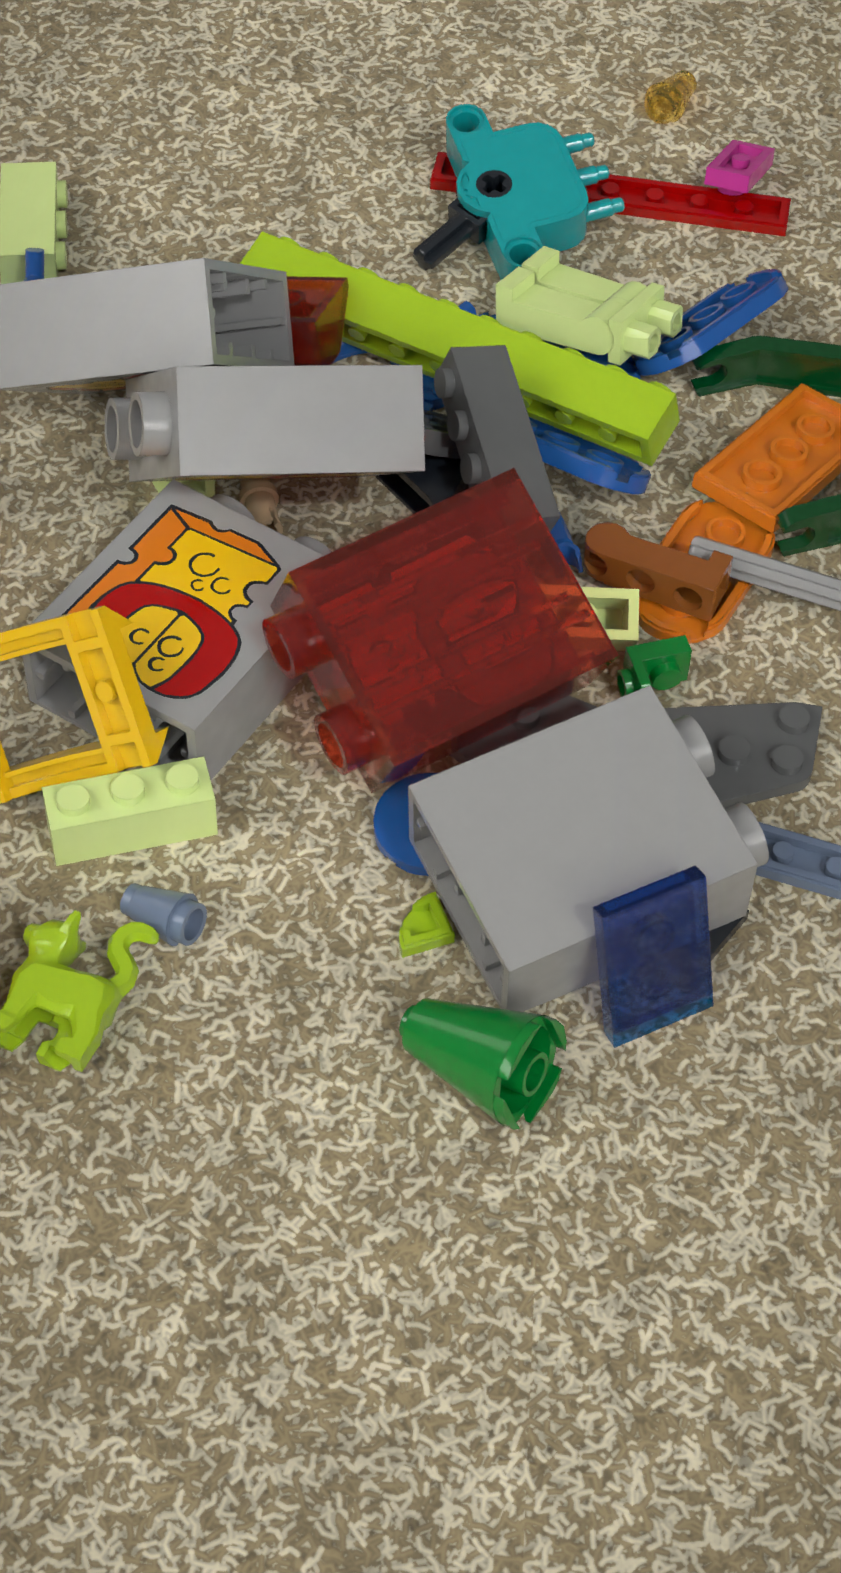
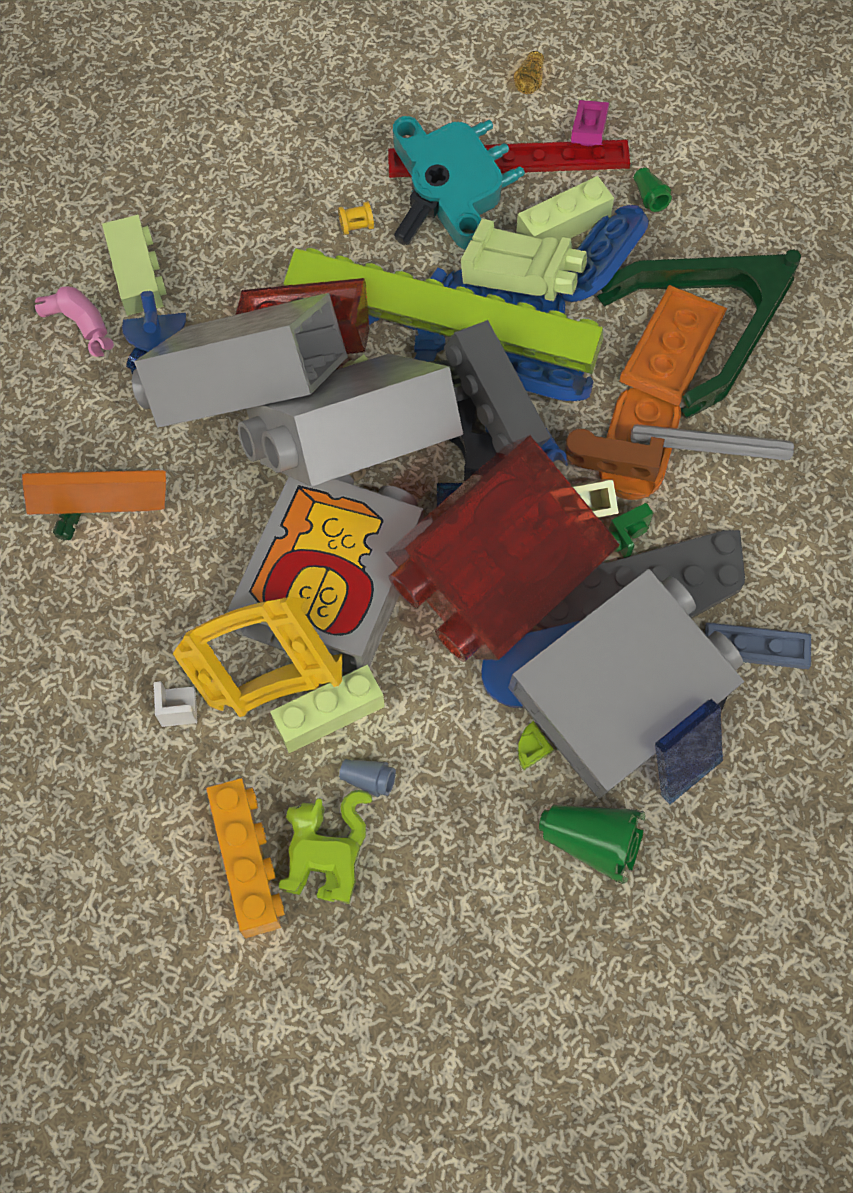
camera: 10 degrees left, 15 degrees up
(378, 216) = (356, 218): none -> yellow bush
(685, 262) = (567, 212): none -> yellowish green brick
(810, 265) = (653, 191): none -> green cone

